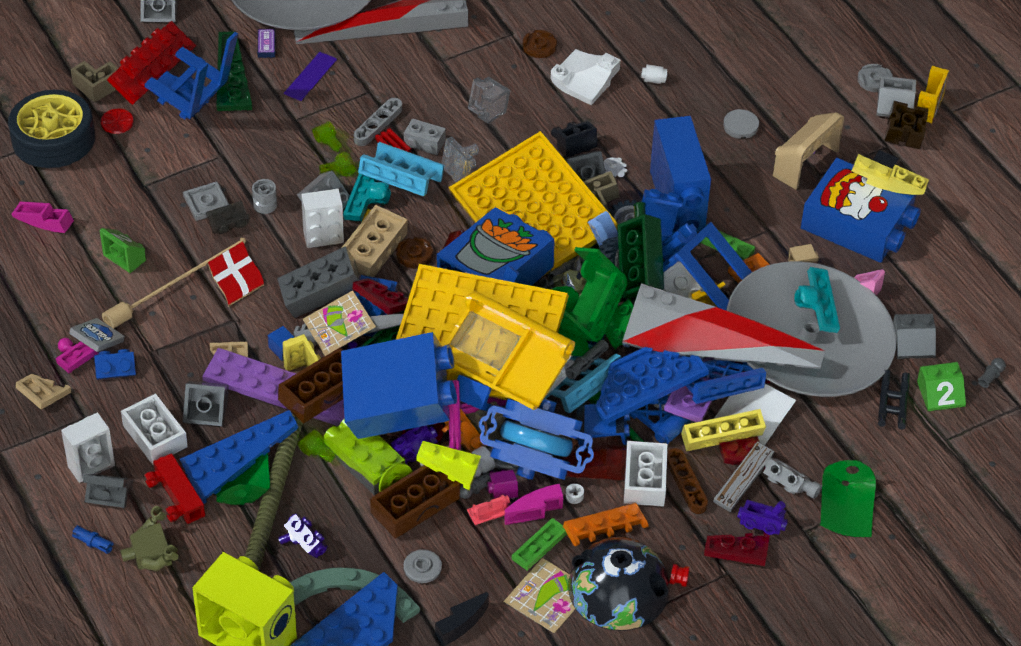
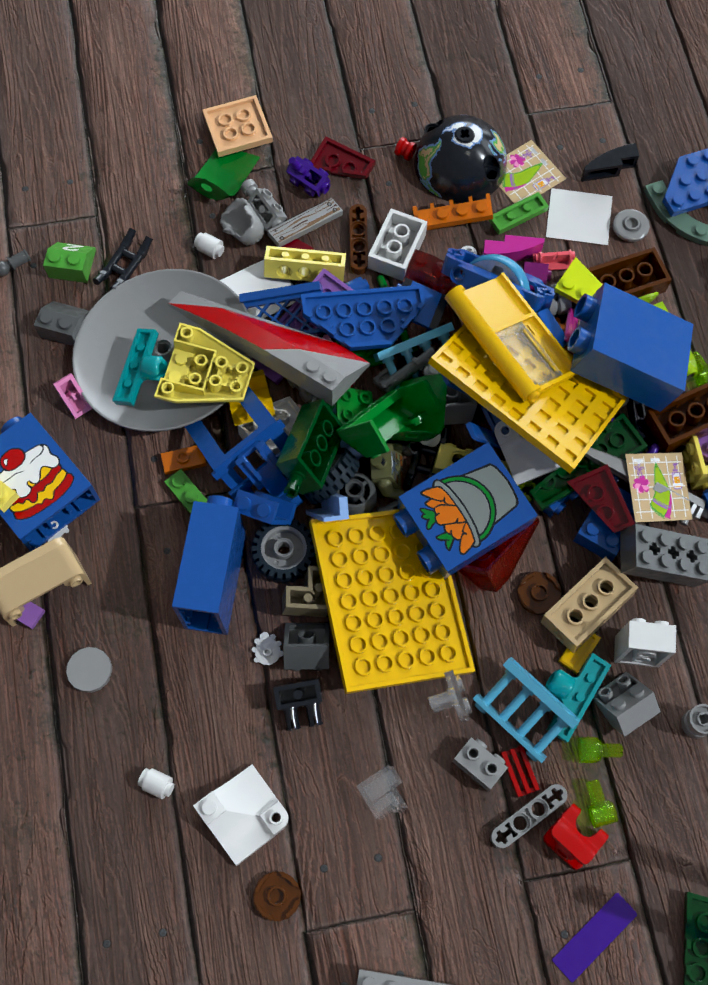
camera: 160 degrees left, 20 degrees up
(343, 108) = (569, 843): none -> red piece
(477, 566) = (579, 216): none -> white sticker
(761, 295) = (204, 370): none -> light yellow wedge
(801, 455) = (242, 222): none -> light grey piece
(803, 253) = (123, 442): tan brick -> none
(823, 432) = (209, 245): none -> white brick
(860, 552) = (237, 126): none -> light nougat plate

